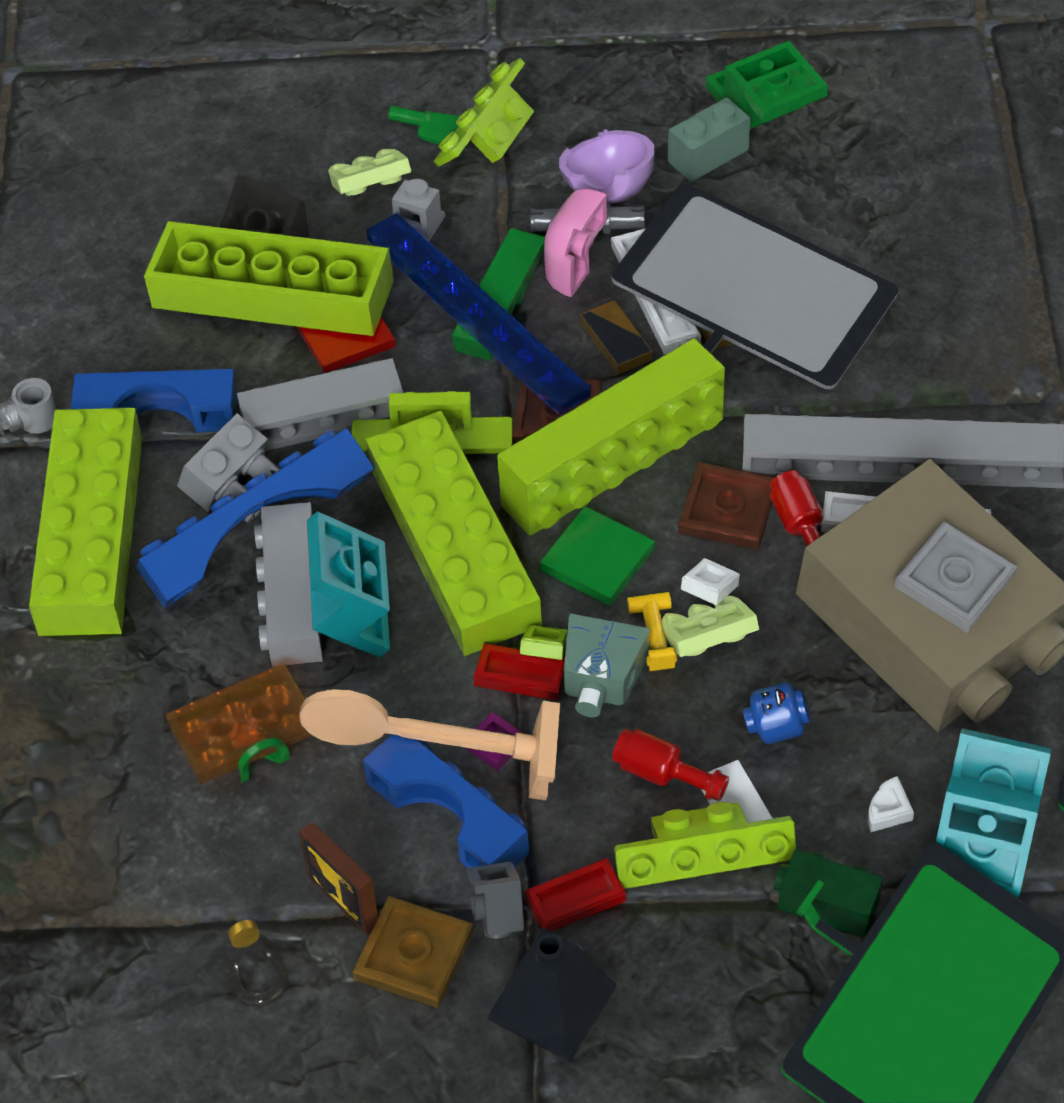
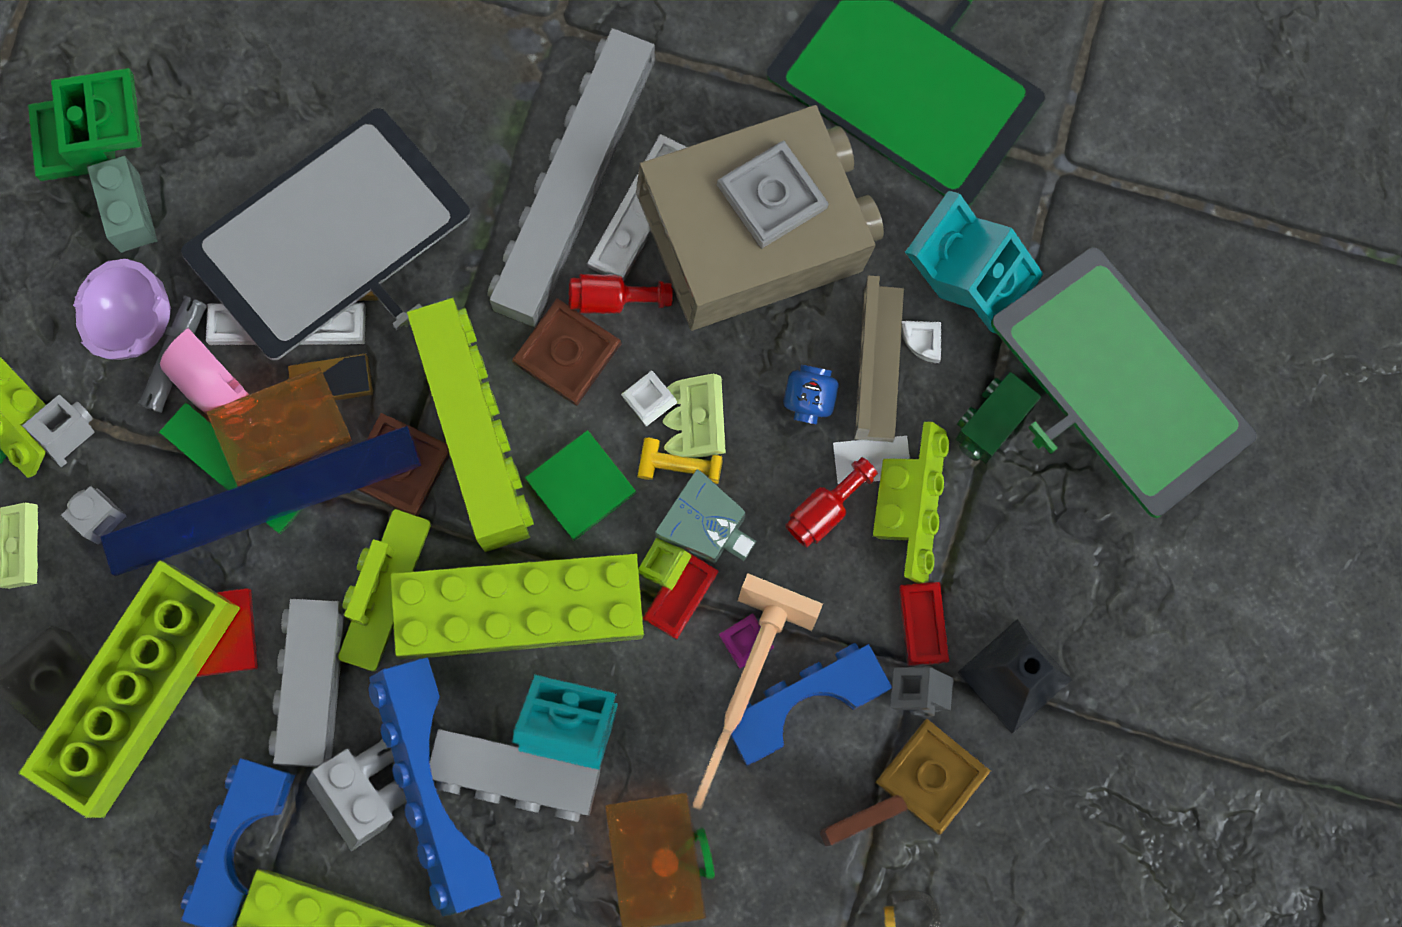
camera: 75 degrees left, 25 degrees up
(484, 164) = (60, 428): none -> light grey brick
(550, 301) = (279, 426): none -> clear orange plate
(841, 765) = (879, 362): none -> dark tan fence

